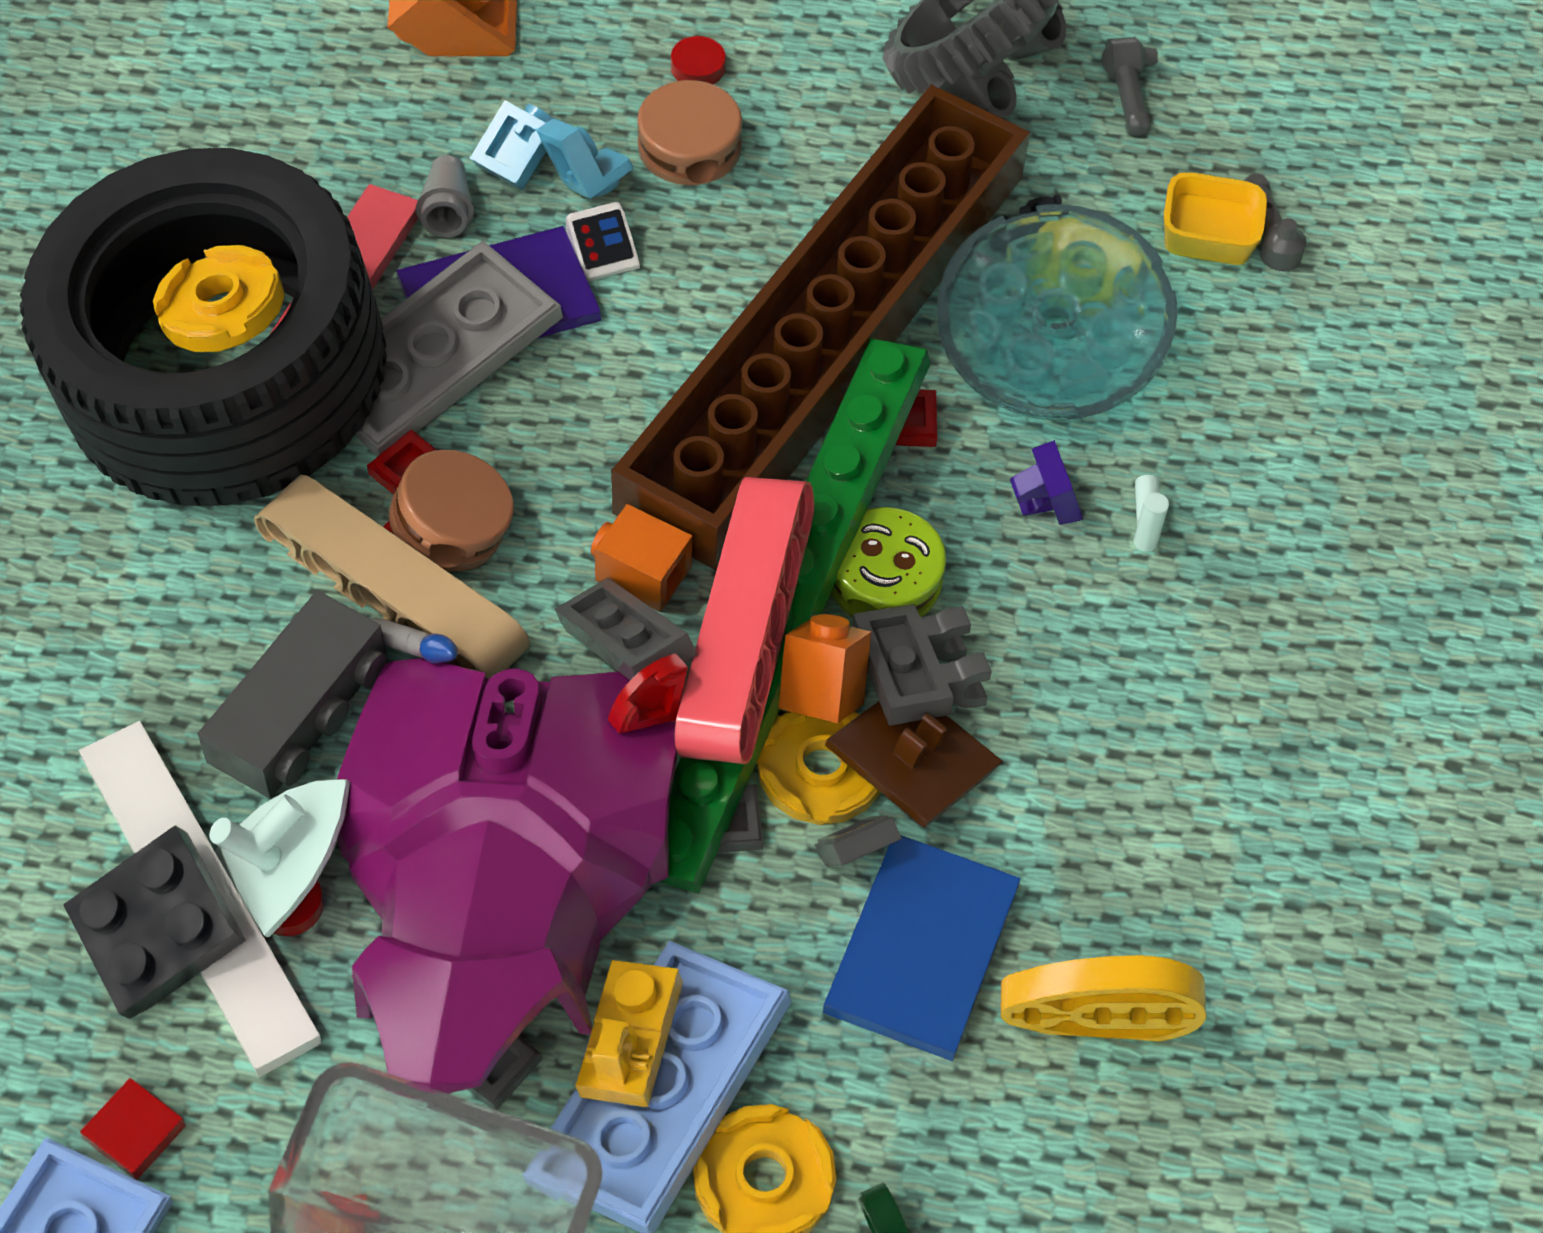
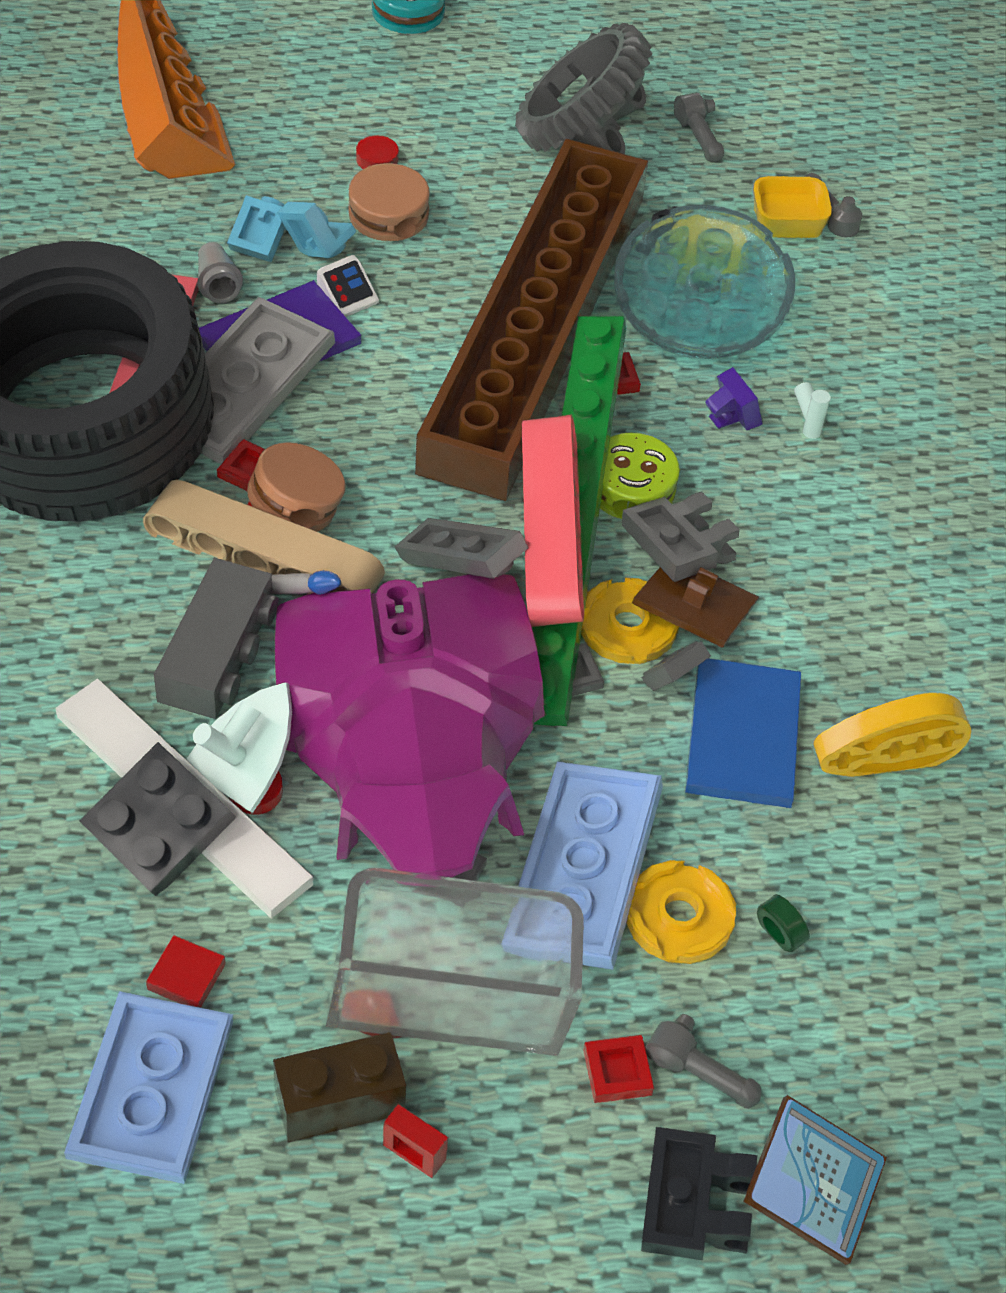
camera: 15 degrees left, 5 degrees down
(218, 325) = (118, 349): yellow tile -> none
(629, 1033) = (552, 828): yellow hinge -> none
(642, 556) = (450, 493): orange brick -> none
(650, 696) = (502, 581): red tile -> none
(824, 668) = (616, 548): orange brick -> none

